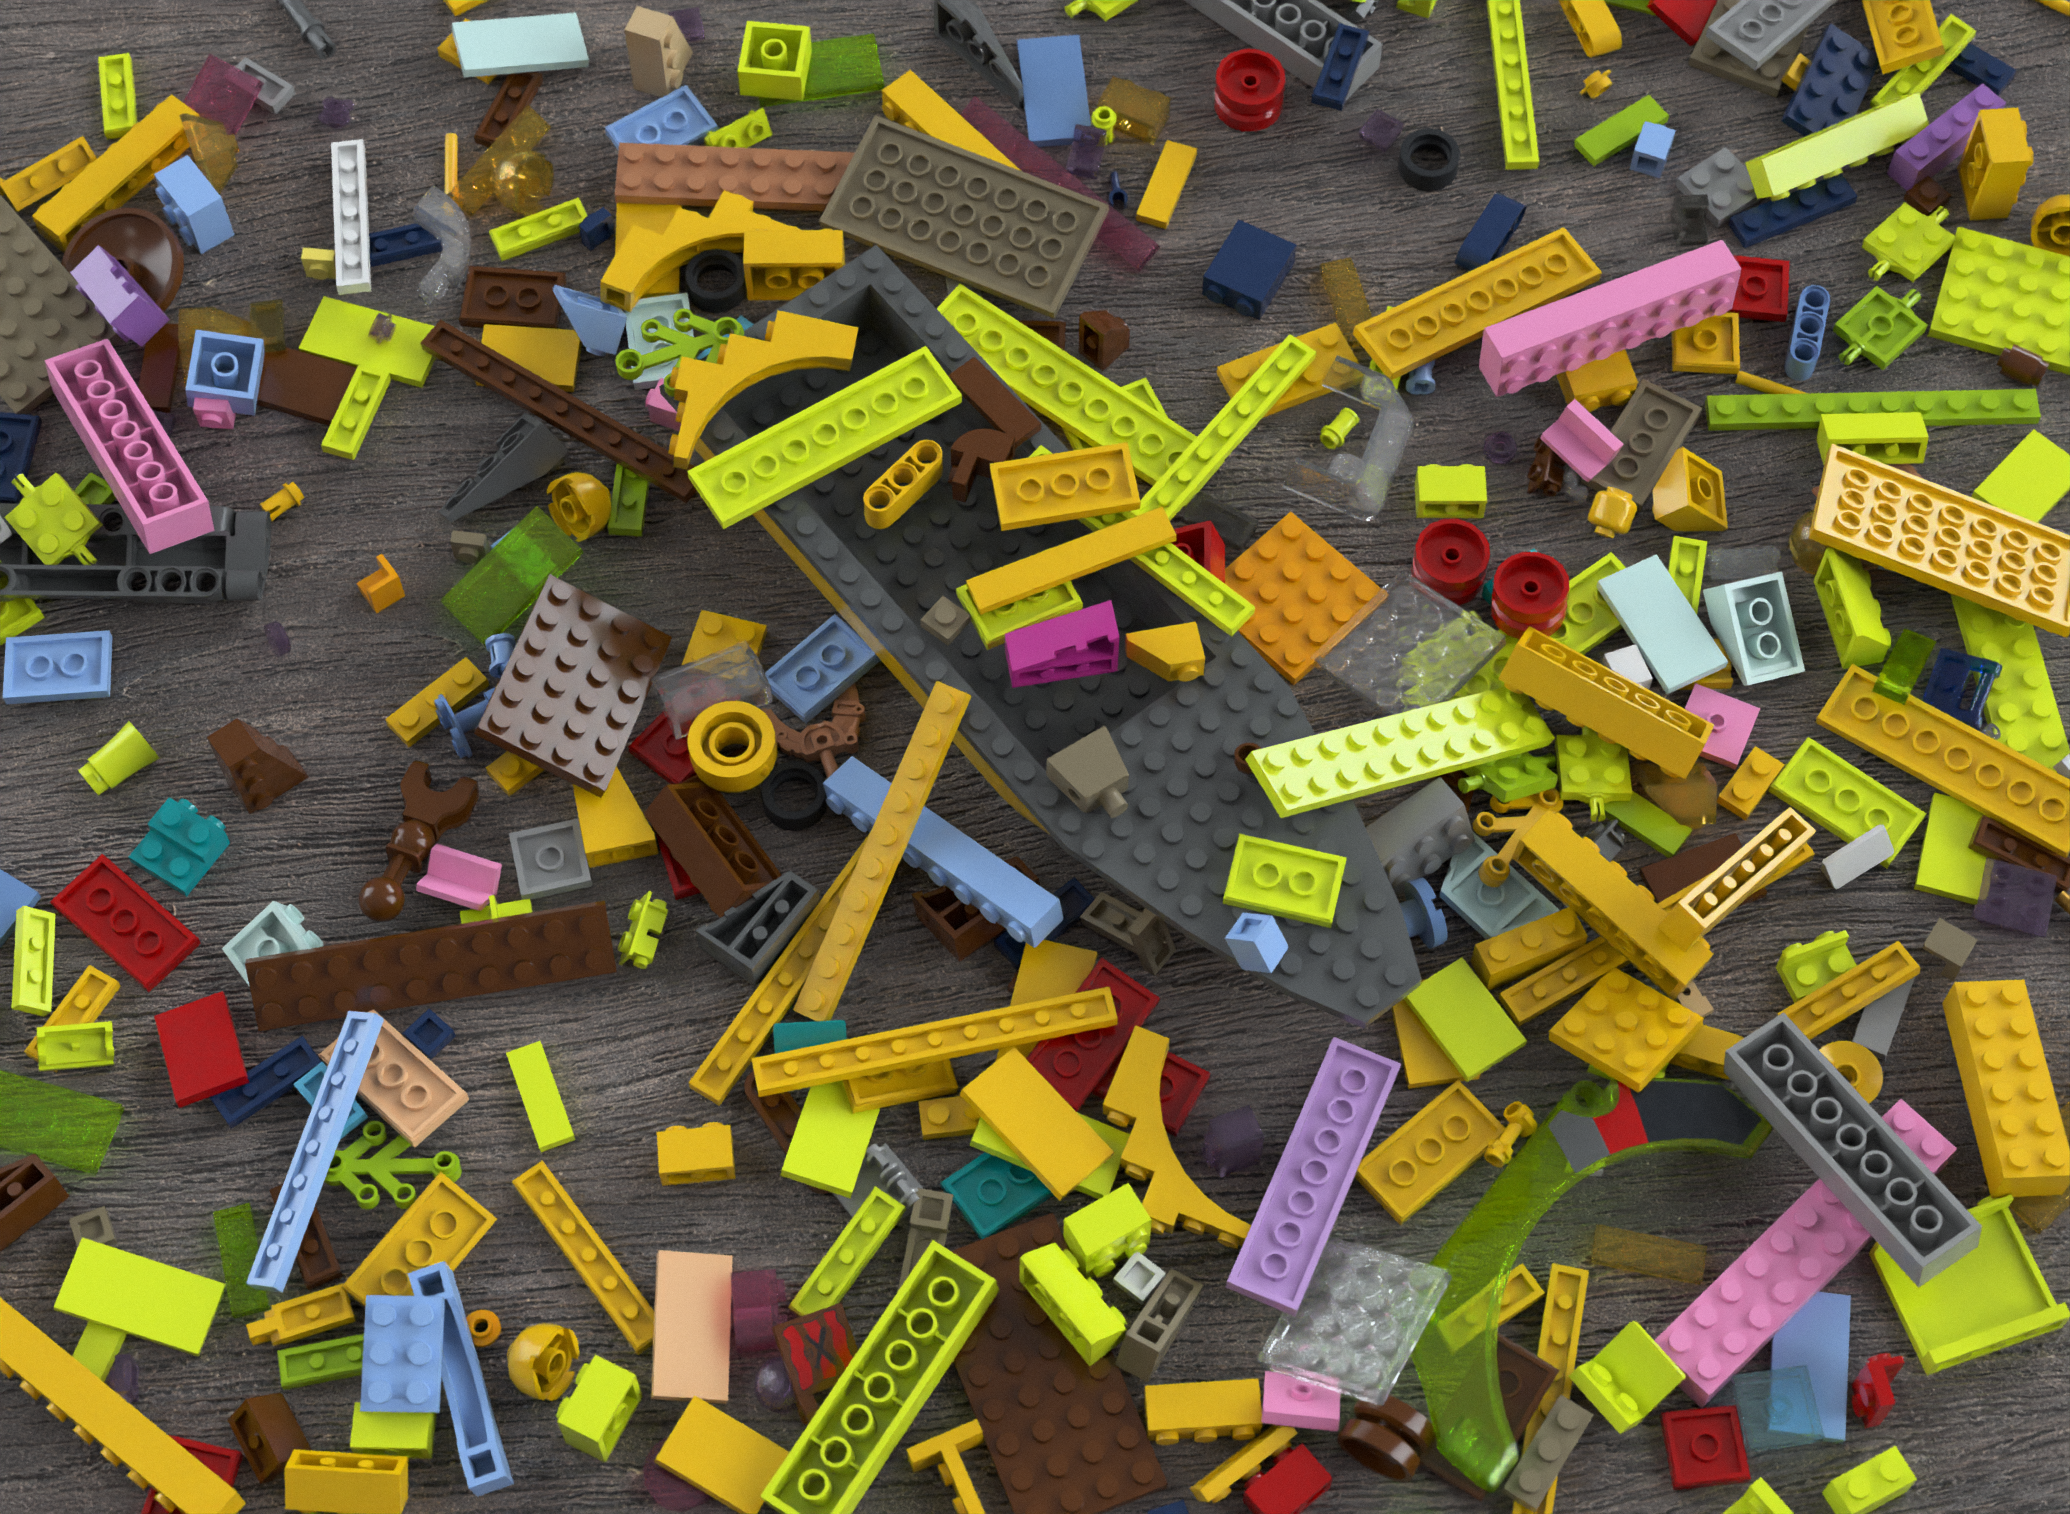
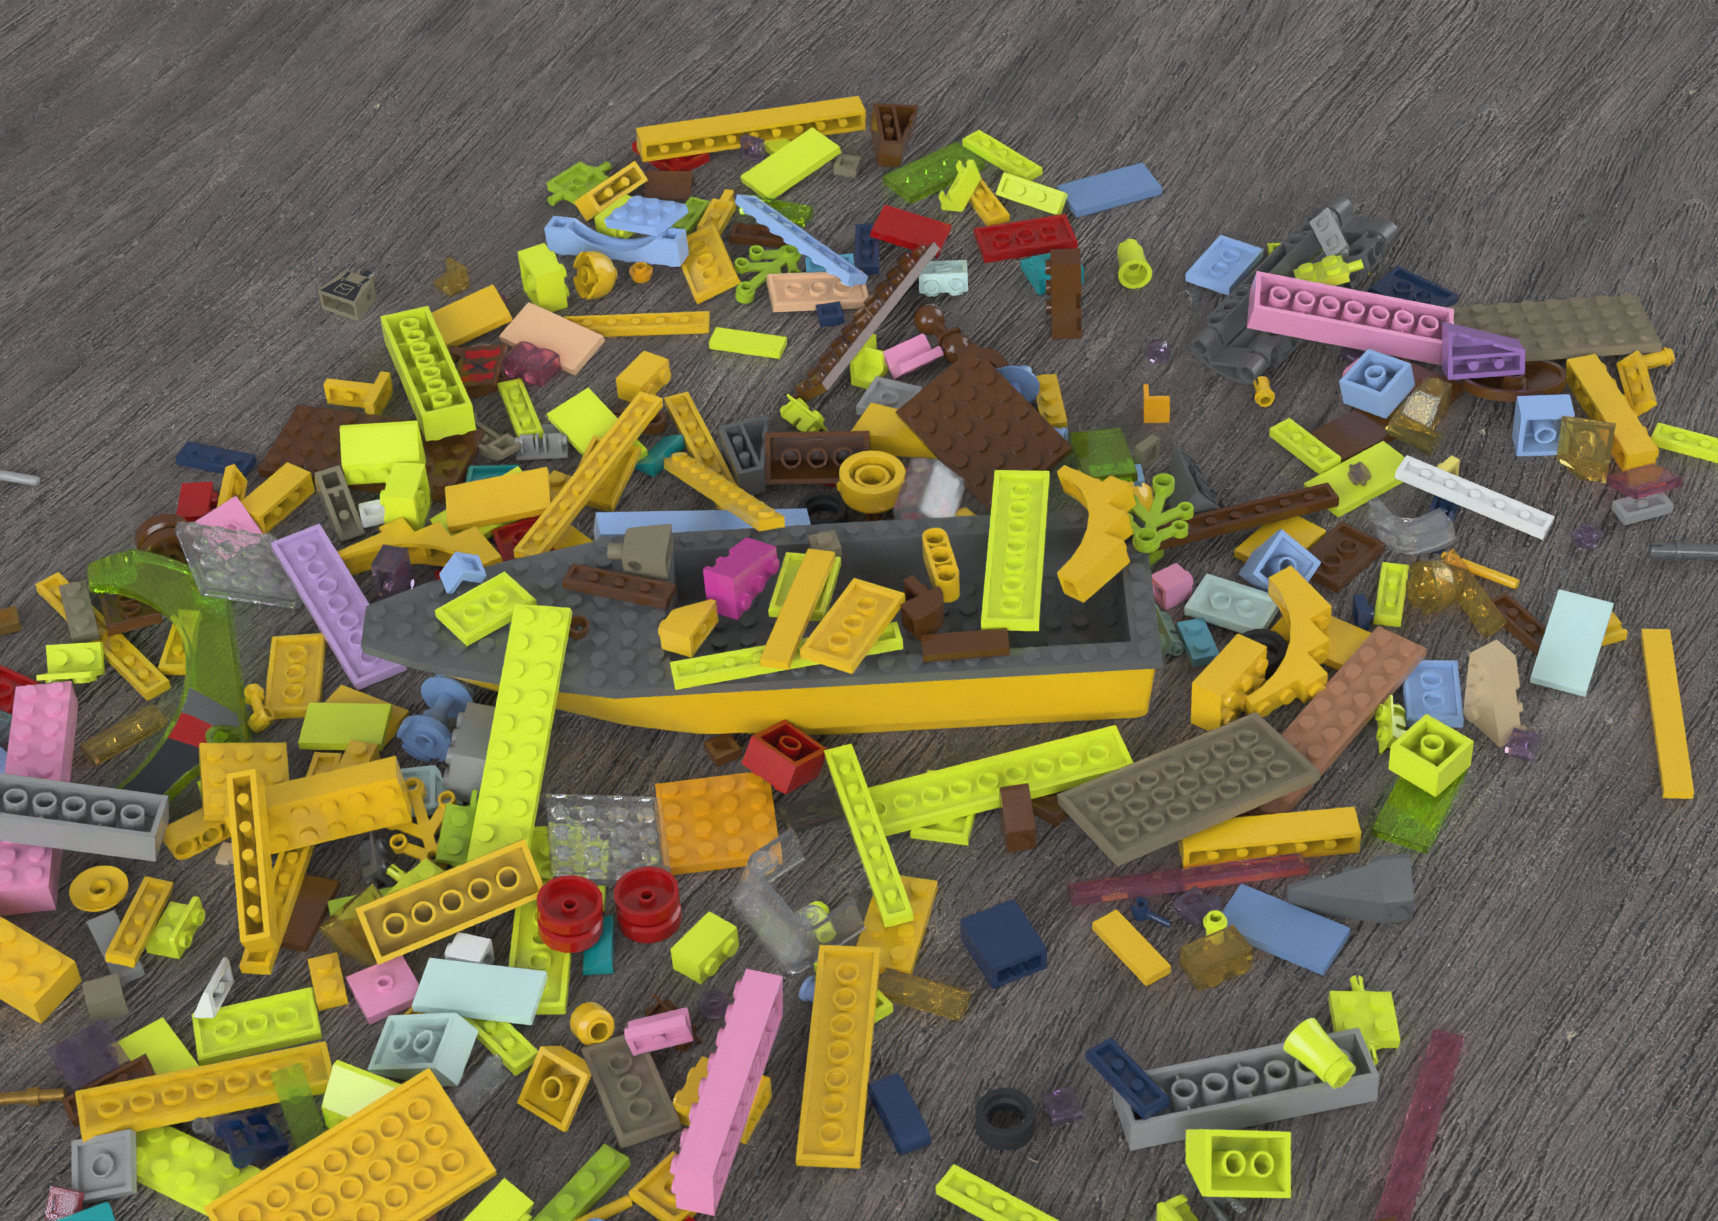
camera: 130 degrees right, 20 degrees down
(1153, 775) = (619, 586): none -> reddish brown tile
(1249, 90) = (1168, 1030): red wheel -> none

